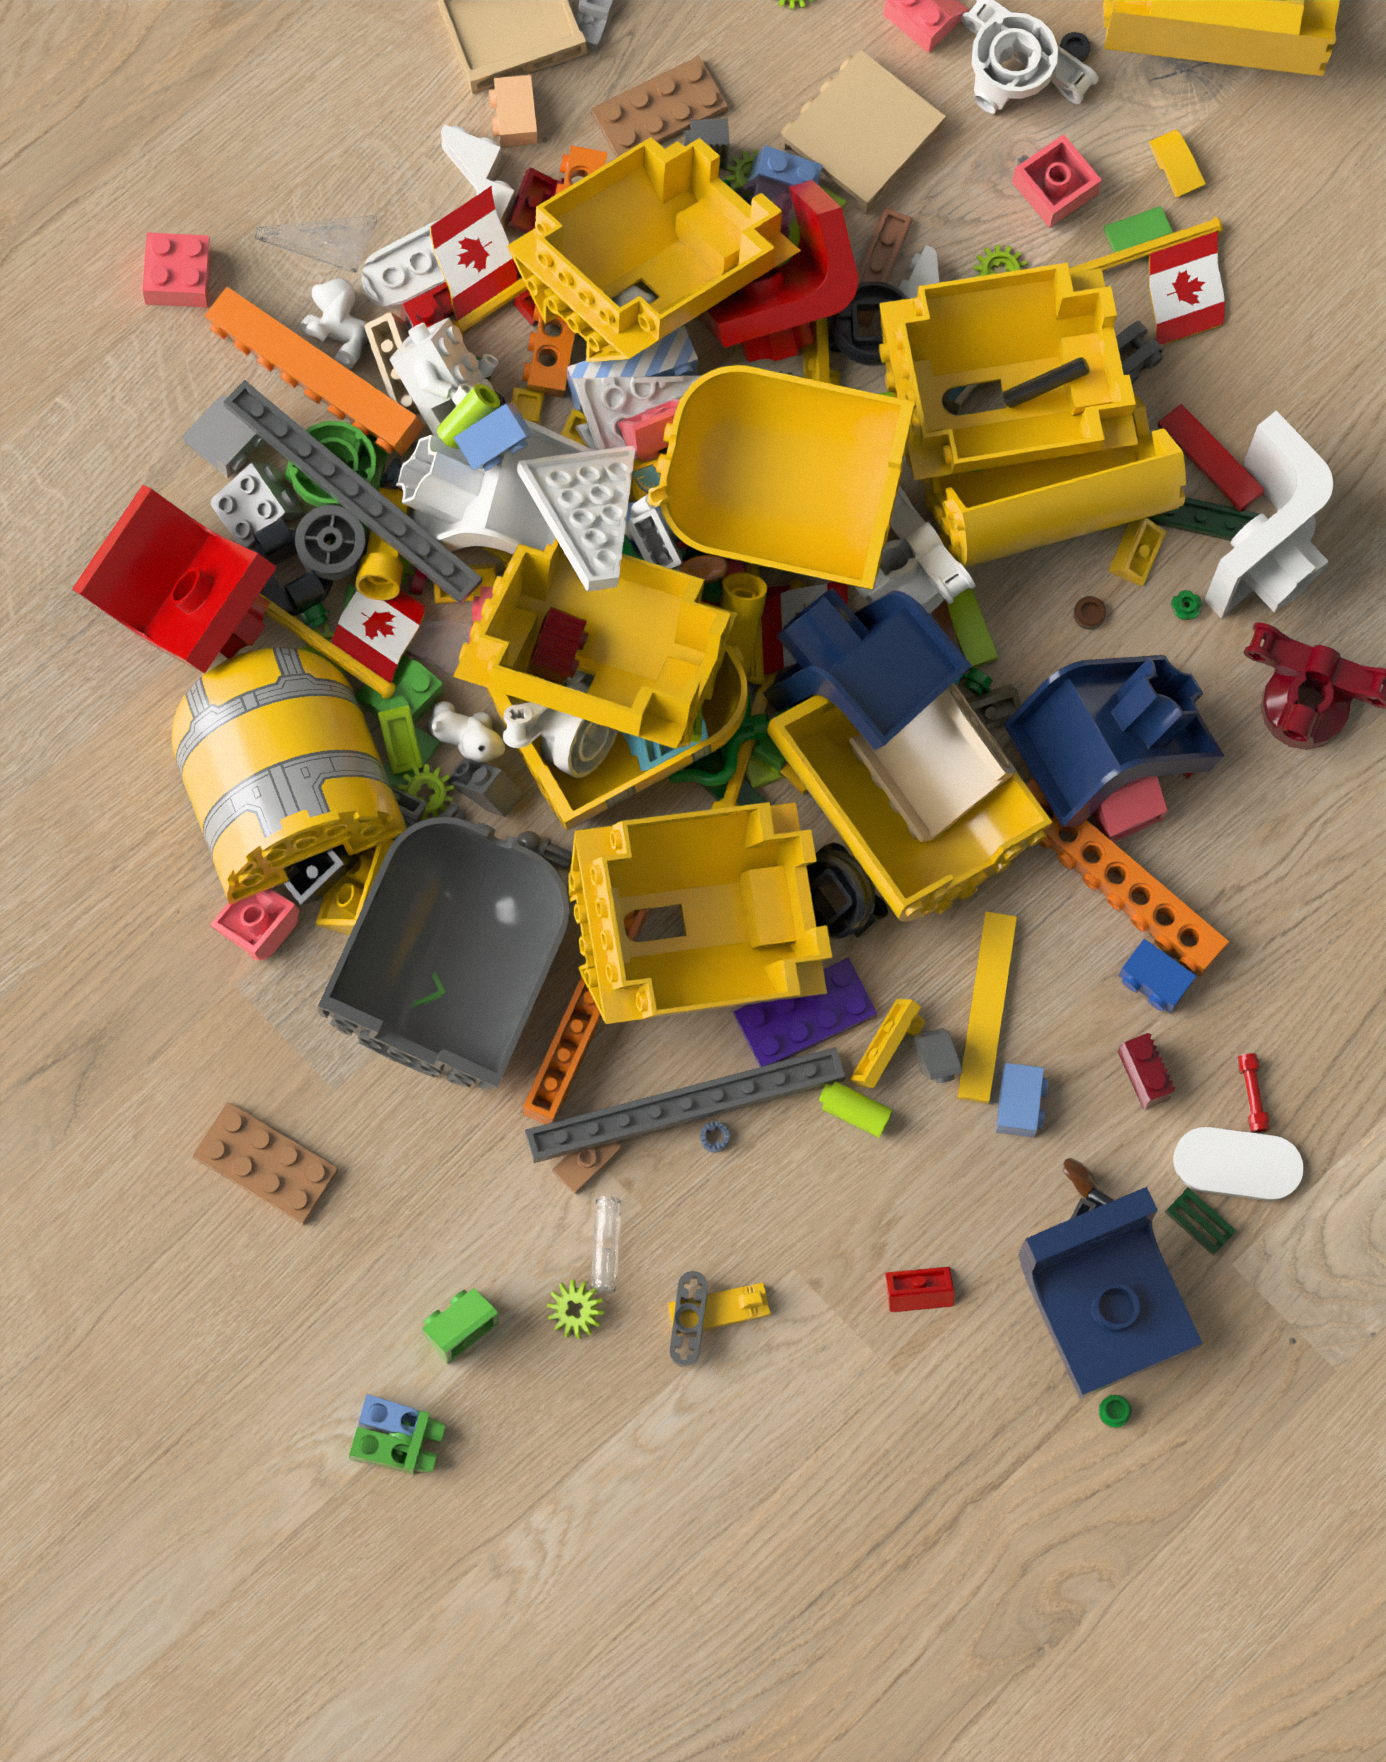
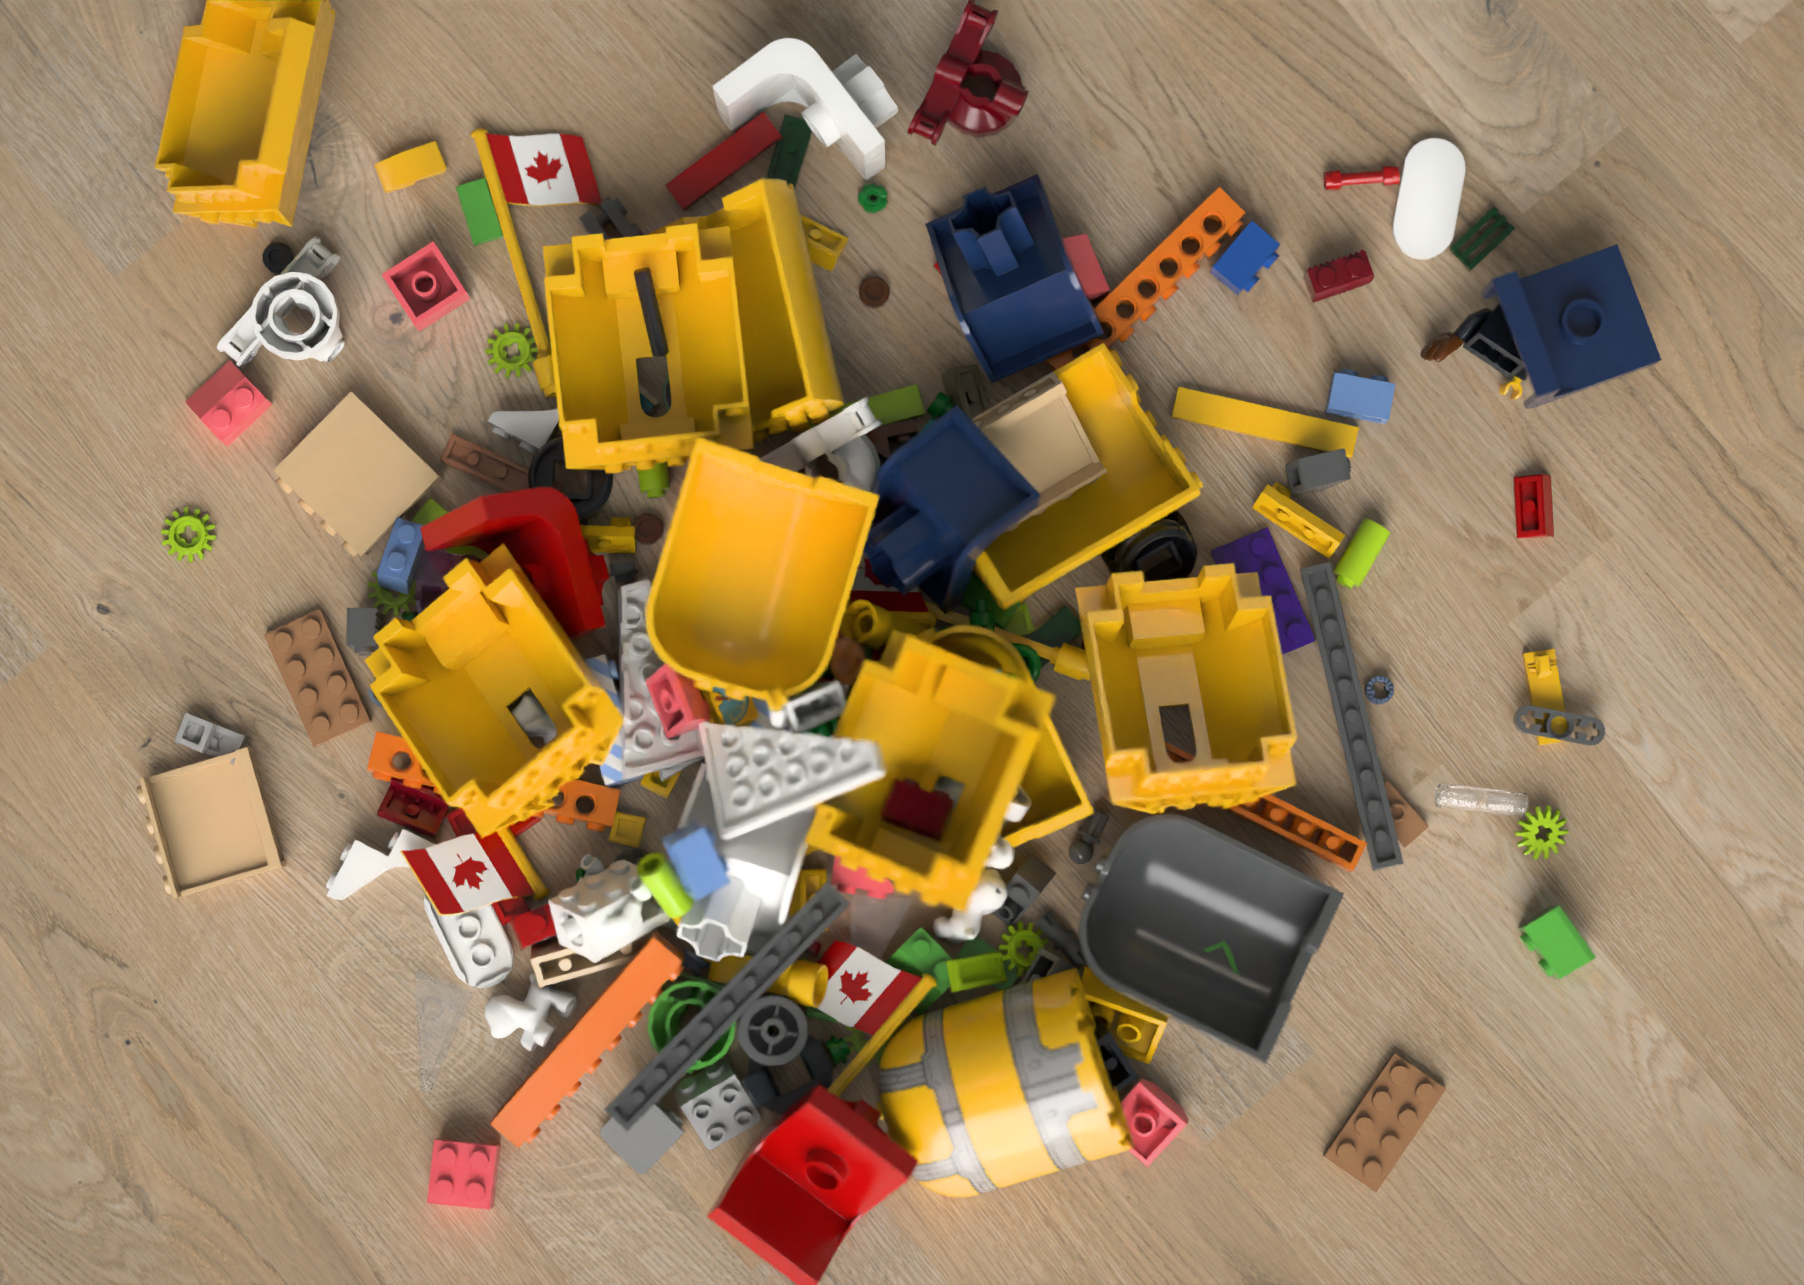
camera: 80 degrees left, 10 degrees up
(406, 1433) = (1657, 1010): bright green hips -> none
(515, 111) = (312, 823): light nougat brick -> none
(1115, 1411) = (1662, 332): green plate -> none

